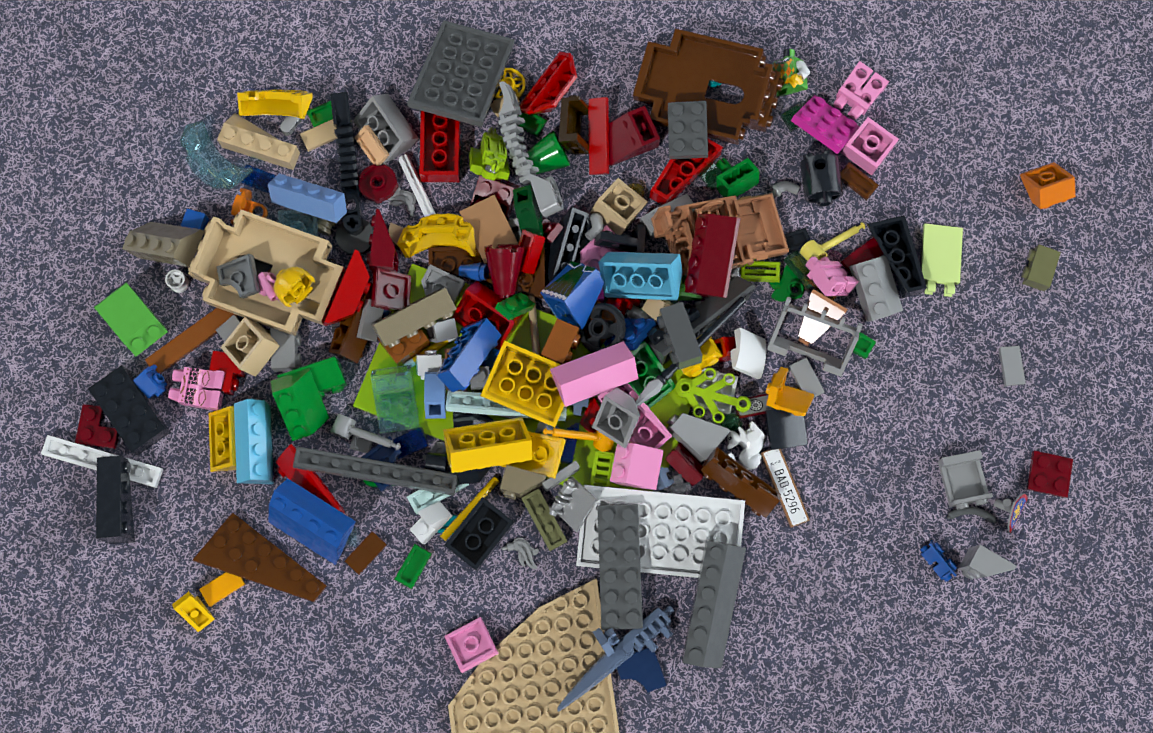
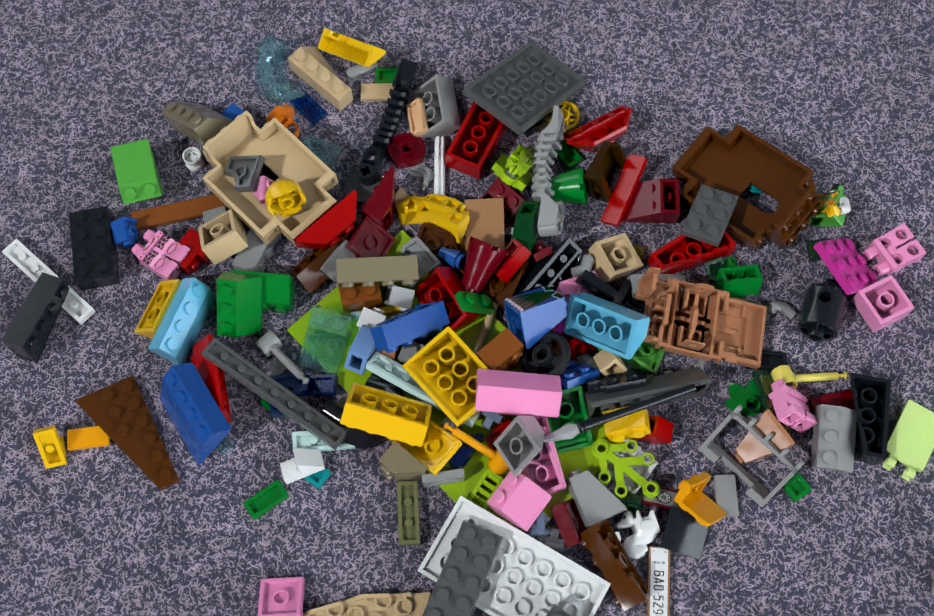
camera: 30 degrees right, 10 degrees down
(90, 429) = (54, 252): dark red plate -> none
(307, 198) = (337, 133): medium blue wedge -> none
(325, 226) = (343, 164): dark tan wheel -> none
(365, 553) = (230, 467): reddish brown tile -> none
(461, 517) = (342, 470): yellow bar -> none
(479, 534) = (340, 497): black brick -> none
(524, 550) = (376, 534): light grey piece -> none
(573, 503) = (441, 508): light grey hinge -> none
(679, 336) = (615, 393): dark grey brick -> none
(712, 255) = (680, 332): dark red slope -> none
(749, 353) = (678, 444): white slope -> none
(756, 278) = (725, 379): lime tile -> none
(858, 181) = (857, 332): reddish brown tile -> none

